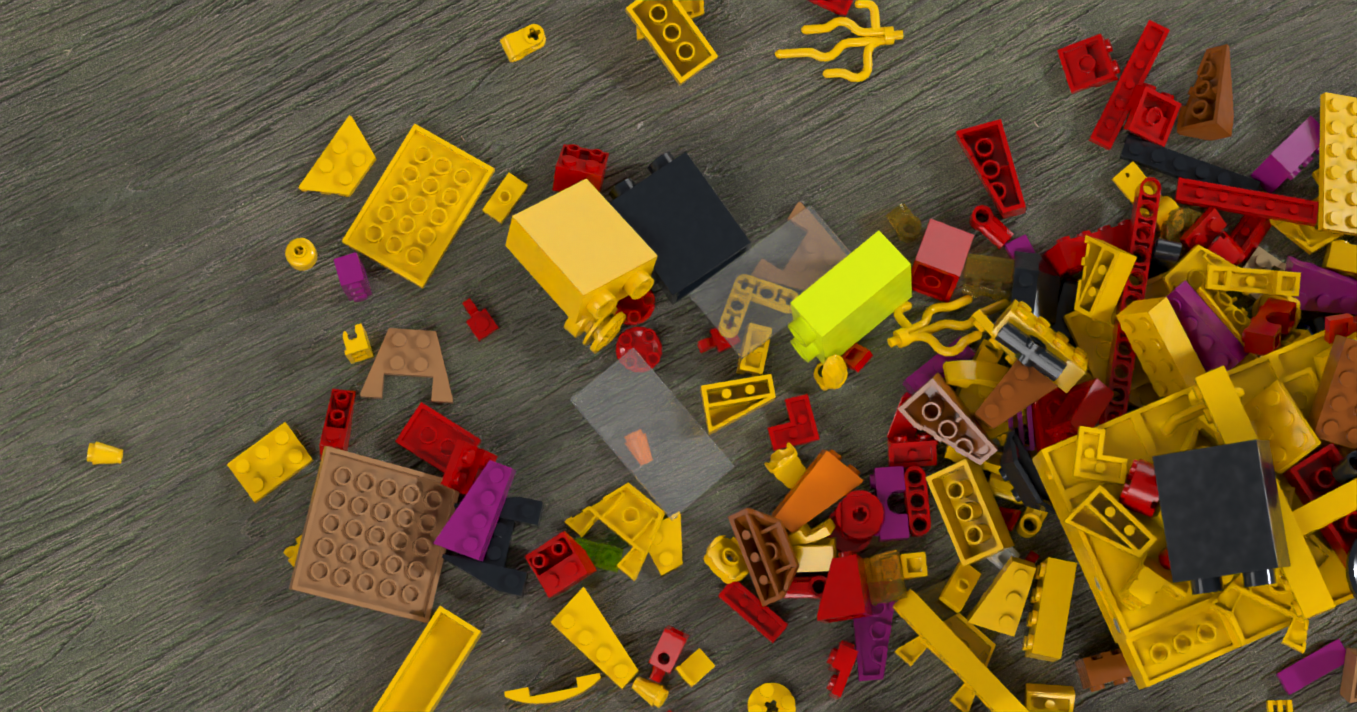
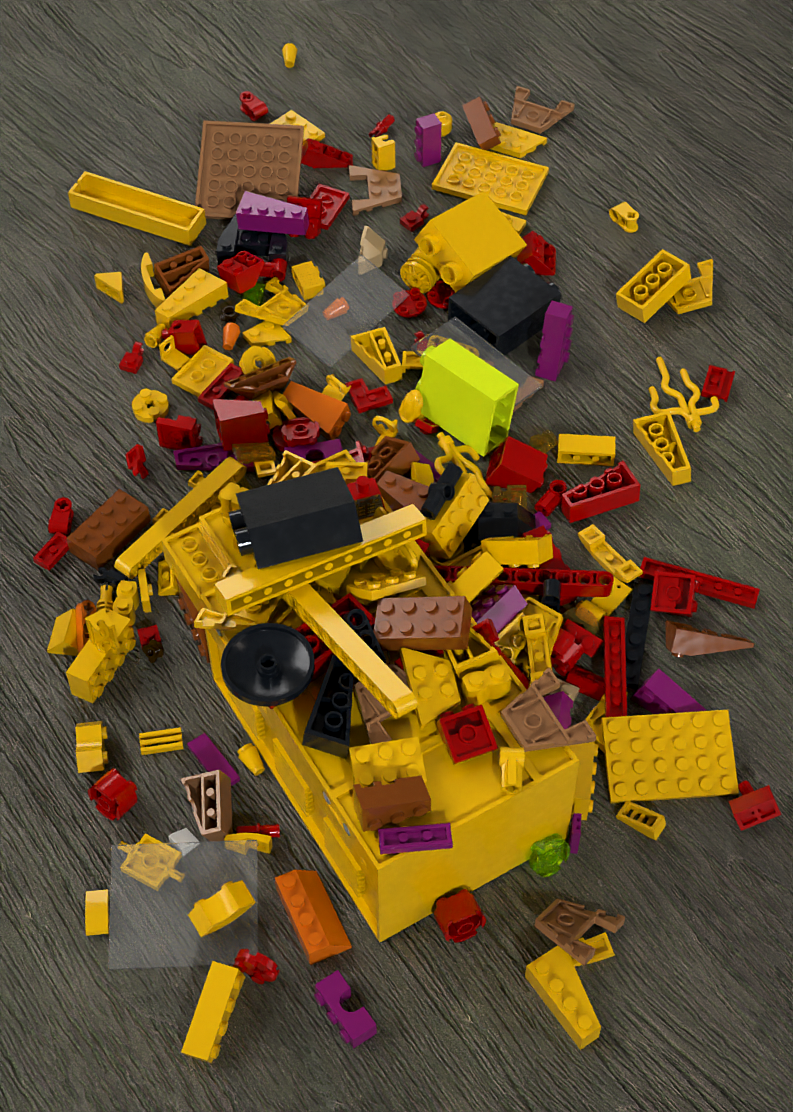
camera: 85 degrees right, 25 degrees down
(216, 518) = (252, 106): none -> red piece
(288, 339) = (382, 127): none -> red axle
(299, 127) = (534, 116): none -> medium nougat wing
(323, 197) = (482, 123): none -> dark orange wedge
(544, 648) = (177, 269): none -> dark orange wedge
(545, 386) = (373, 247): none -> tan slope
(551, 521) = (276, 268): none -> red piece
(579, 477) = (307, 279): none -> yellow brick
(624, 583) = (229, 314): none -> dark brown plate
(666, 592) = (230, 335): none -> orange cone
(723, 633) = (201, 370): none -> yellow plate
(766, 176) = (555, 340): none -> magenta wedge
(868, 412) = (392, 425): none -> yellow piece
(918, 171) = (586, 449): none -> yellow brick
(930, 77) = (662, 442): none -> yellow wedge
(1082, 176) = (606, 556): none -> yellow slope
(1088, 63) = (708, 551): red plate -> none
(1140, 437) = (366, 496): none -> torso
(1320, 623) = (251, 759): none -> yellow cone

